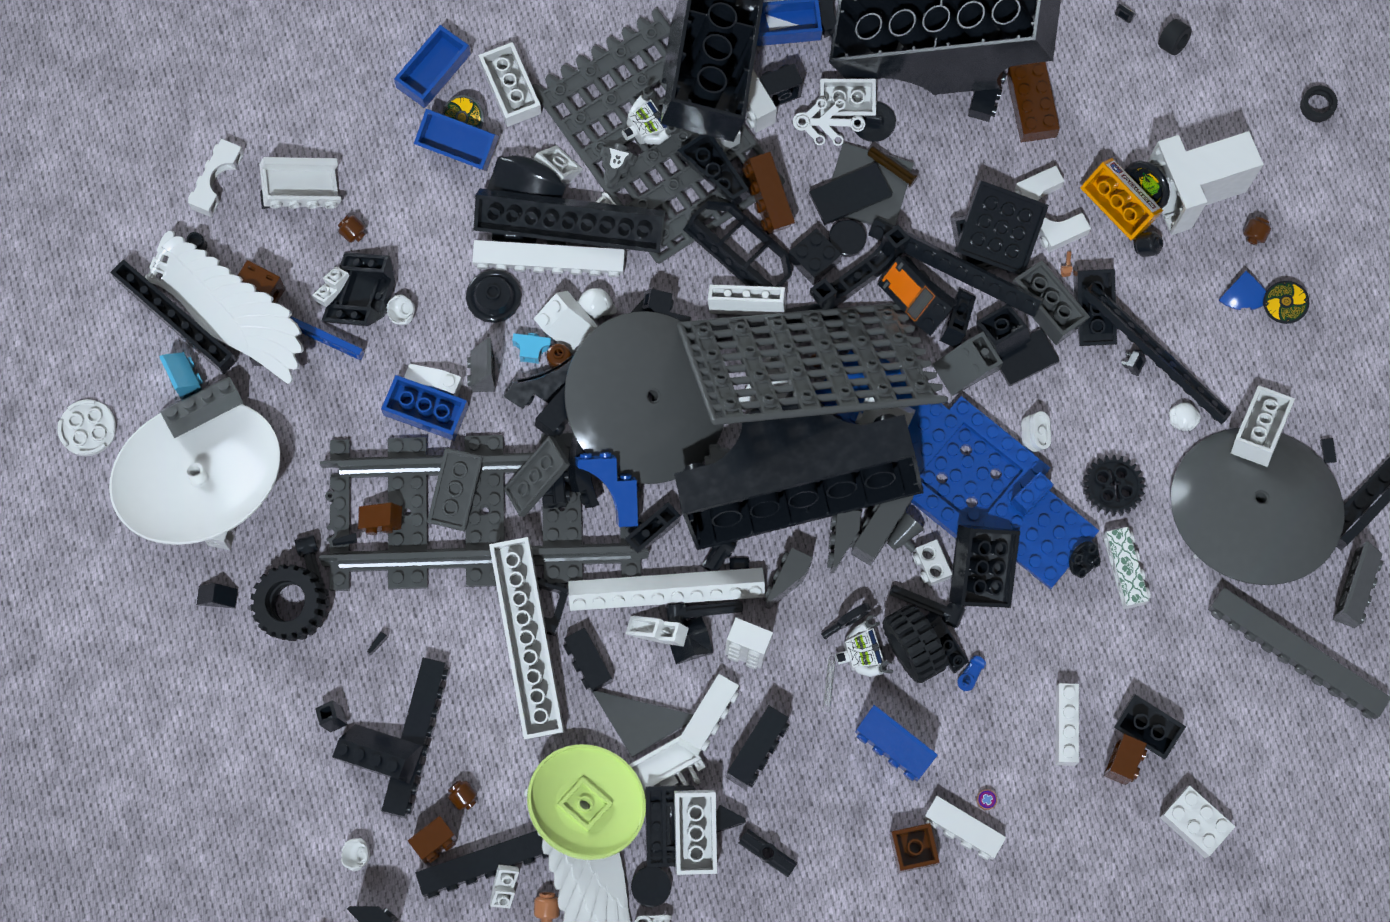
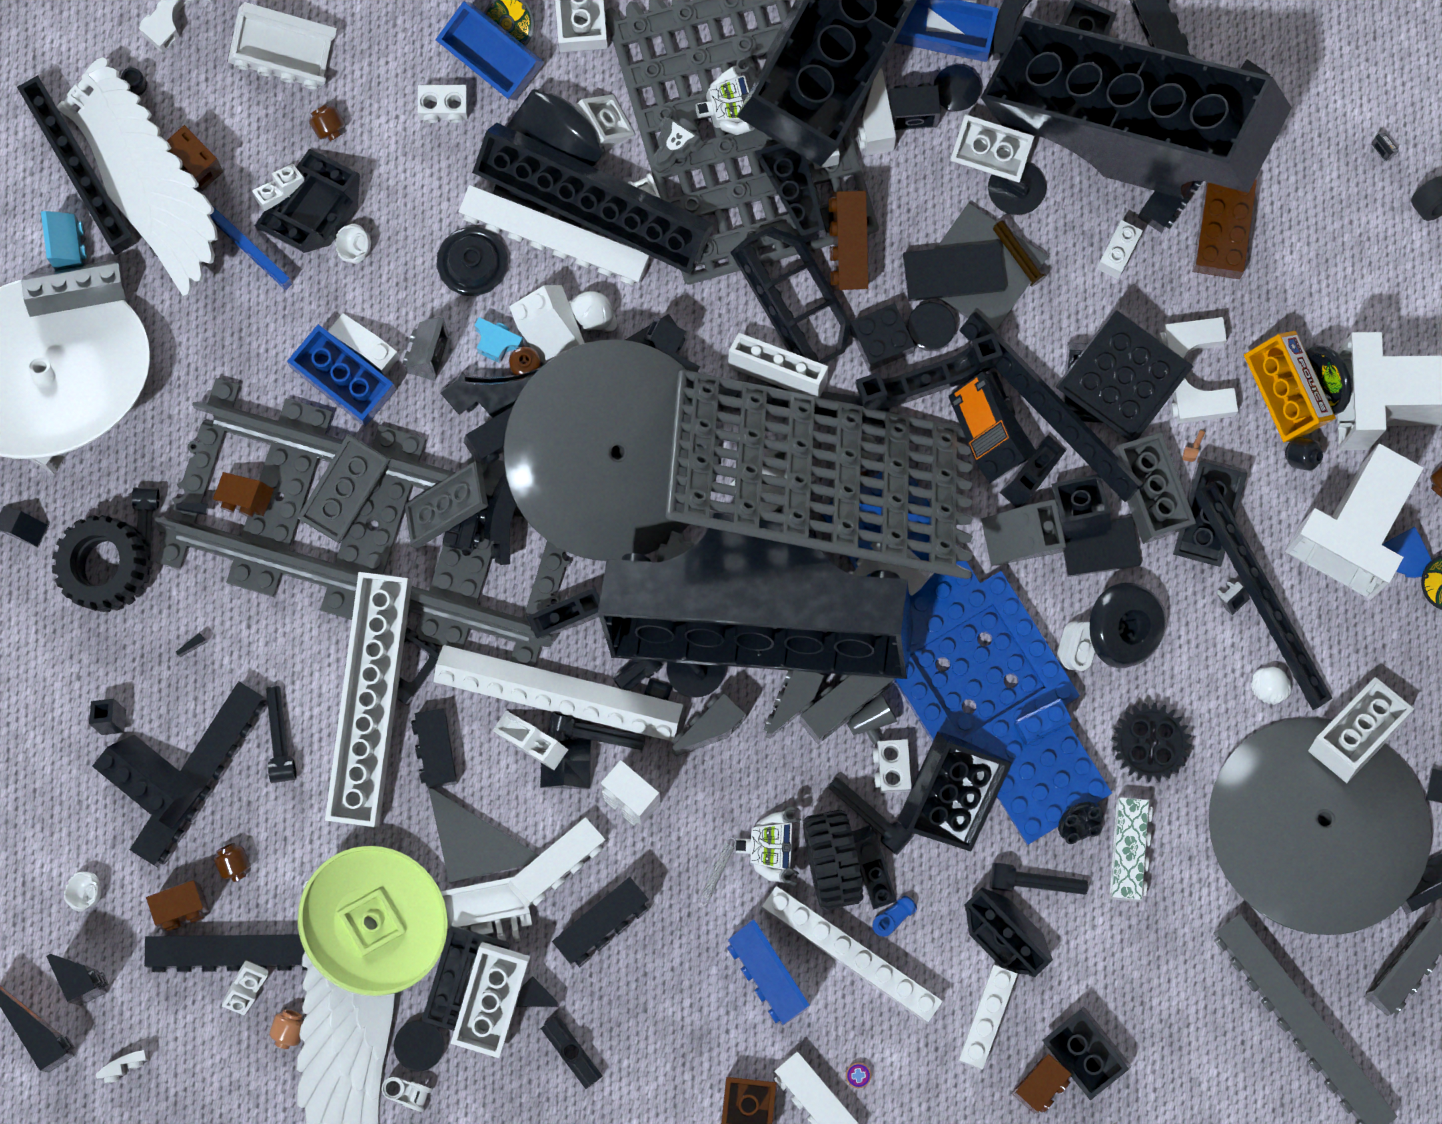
camera: 20 degrees right, 5 degrees up
(432, 183) = (443, 96): none -> white brick
(475, 710) = (281, 766): none -> black axle
(622, 489) = (541, 553): blue arch -> none
(763, 546) = (694, 679): none -> black shield
(808, 63) = (957, 88): none -> black dish
(826, 121) = (954, 171): white plant -> none
(848, 619) = (765, 802): black piece -> none
(951, 711) = (851, 954): none -> white brick
(964, 141) = (1119, 249): none -> white brick
(1043, 617) = (1005, 877): none -> black axle
(1059, 658) = (1006, 933): none -> black wedge
(1066, 405) = (1126, 625): none -> black hat
(1207, 290) = (1351, 540): none -> white piece

